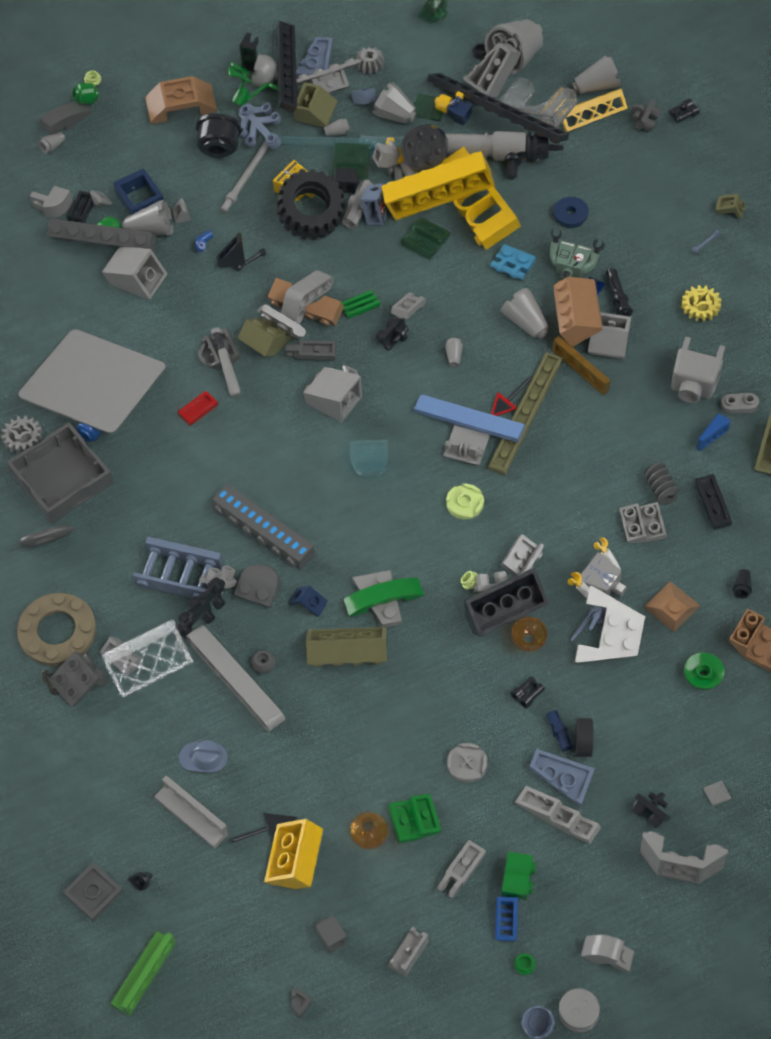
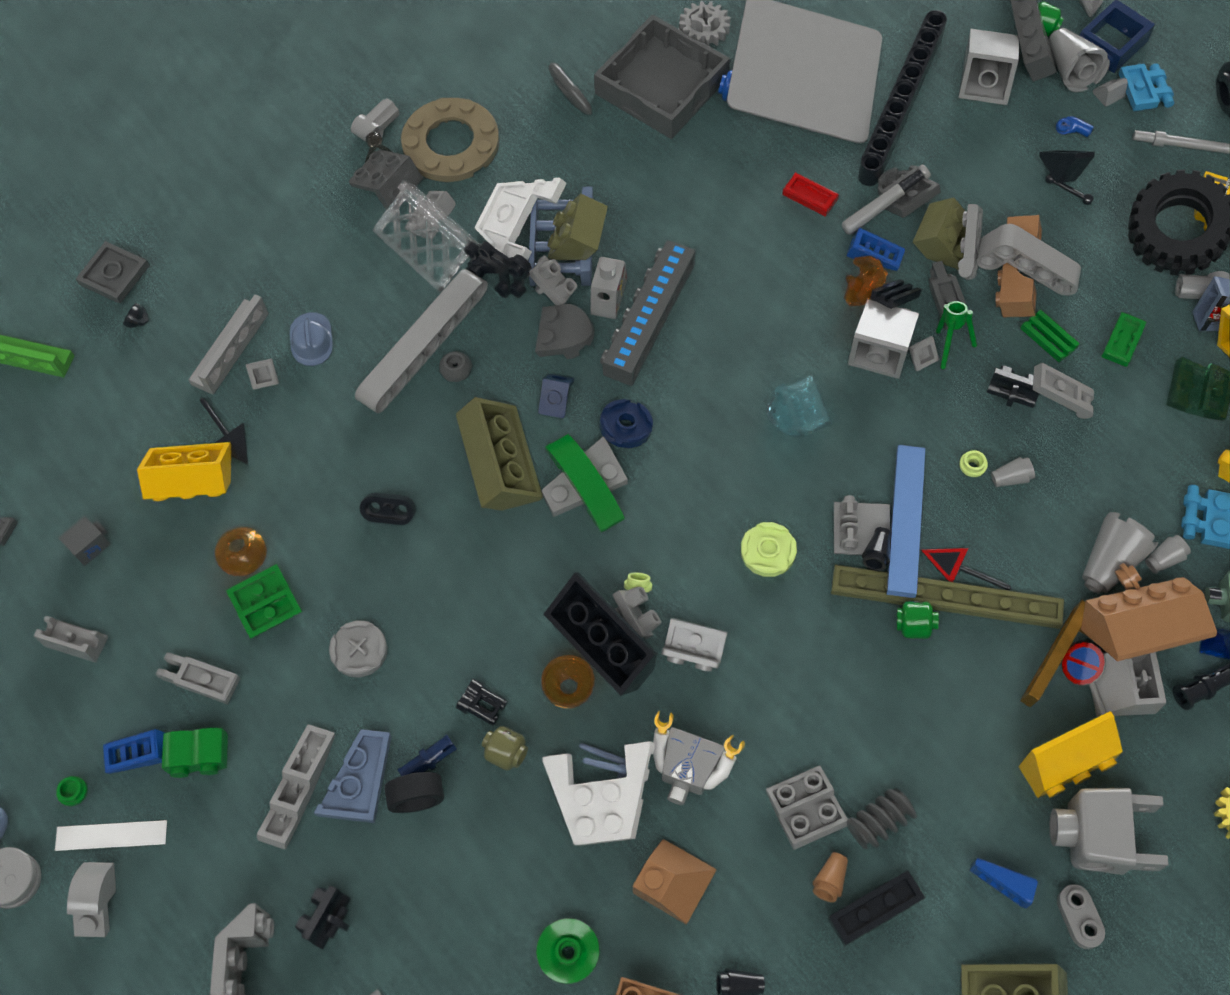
camera: 75 degrees right, 5 degrees up
(23, 679) = (375, 120): none -> light grey piece
(140, 330) = (902, 98): none -> black beam
(148, 596) = (509, 209): none -> white wing
(188, 550) = (577, 229): none -> olive slope
(191, 195) = (1140, 86): none -> dark azure plate
(226, 792) = (262, 374): none -> light grey slope
(236, 546) = (609, 279): none -> light grey torso
(255, 392) = (870, 240): none -> blue slope
(287, 391) = (871, 277): none -> clear orange hand
(299, 372) = (896, 293): none -> black tile
(340, 345) = (955, 316): none -> green plant
(348, 570) = (622, 435): none -> dark blue tile
(367, 726) = (389, 509): none -> black plate
(377, 265) = (1124, 339): none -> green plate
(439, 367) = (973, 457): none -> yellowish green plate
(487, 437) = (877, 553): none -> black cone
(533, 285) = (1169, 553): none -> light grey cone
(539, 431) = (917, 620): none -> green head
(548, 310) = (1128, 576): none -> medium nougat plate
(561, 944) = (111, 835): none -> white sticker
(565, 680) = (504, 748): none -> olive head
(595, 352) = (1083, 666): none -> piece
(647, 376) = (1072, 756): none -> yellow slope
(691, 520) = (830, 880): none -> medium nougat cone

